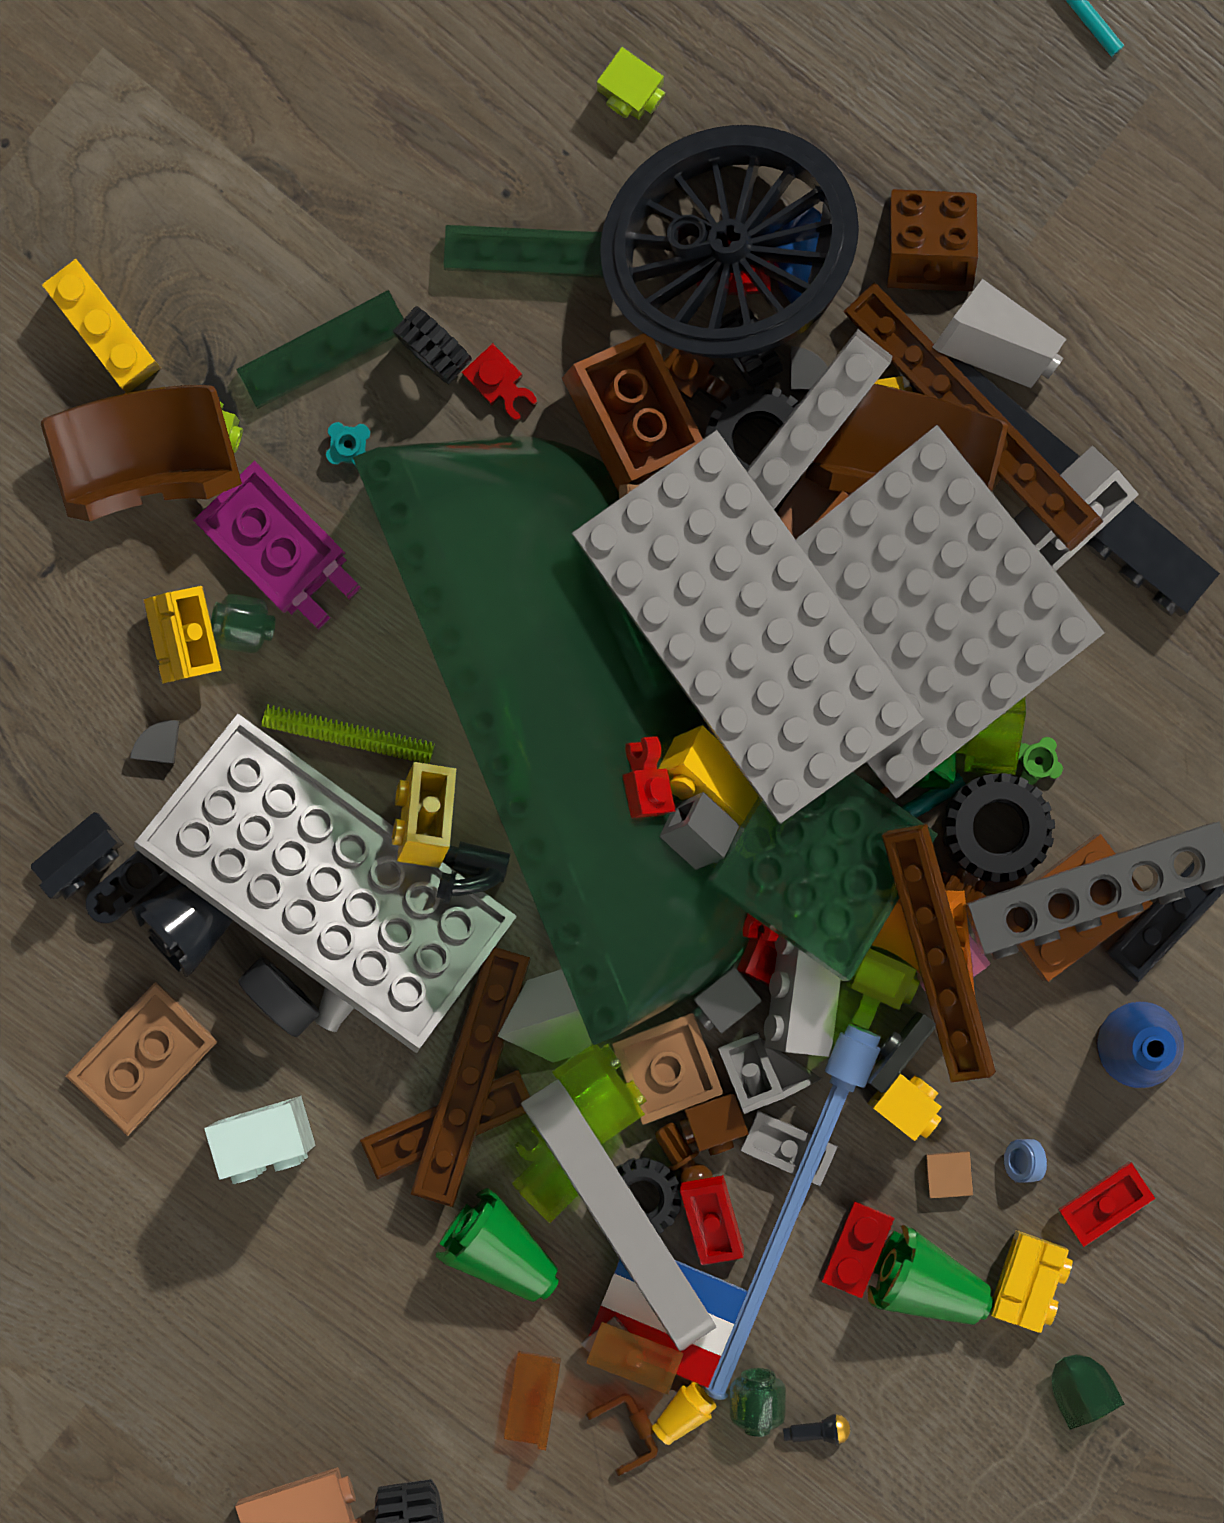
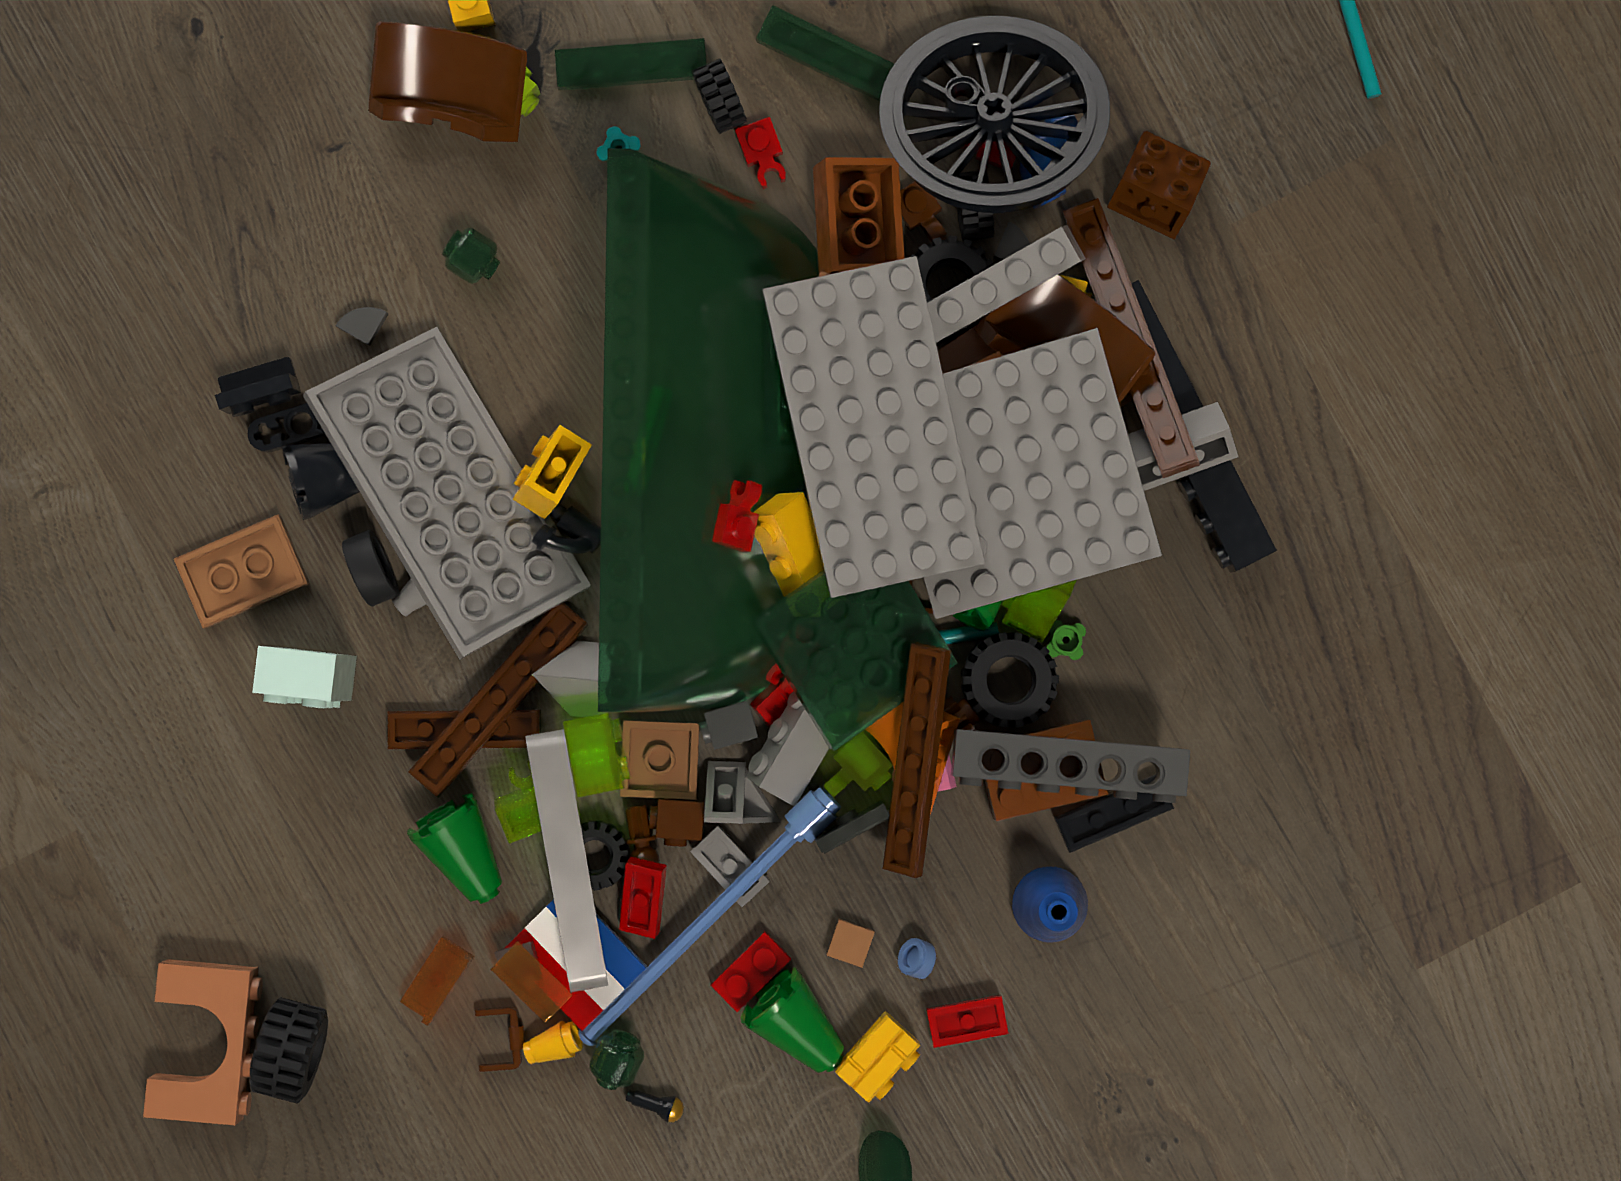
camera: 20 degrees right, 0 degrees up
(182, 634) = (418, 243): yellow brick -> none
(276, 544) = (526, 204): magenta tile -> none
(347, 735) = (517, 382): lime axle -> none
(699, 831) = (763, 576): dark grey brick -> none
(909, 1106) = (840, 873): yellow brick -> none
(1001, 338) = (1180, 285): light grey slope -> none

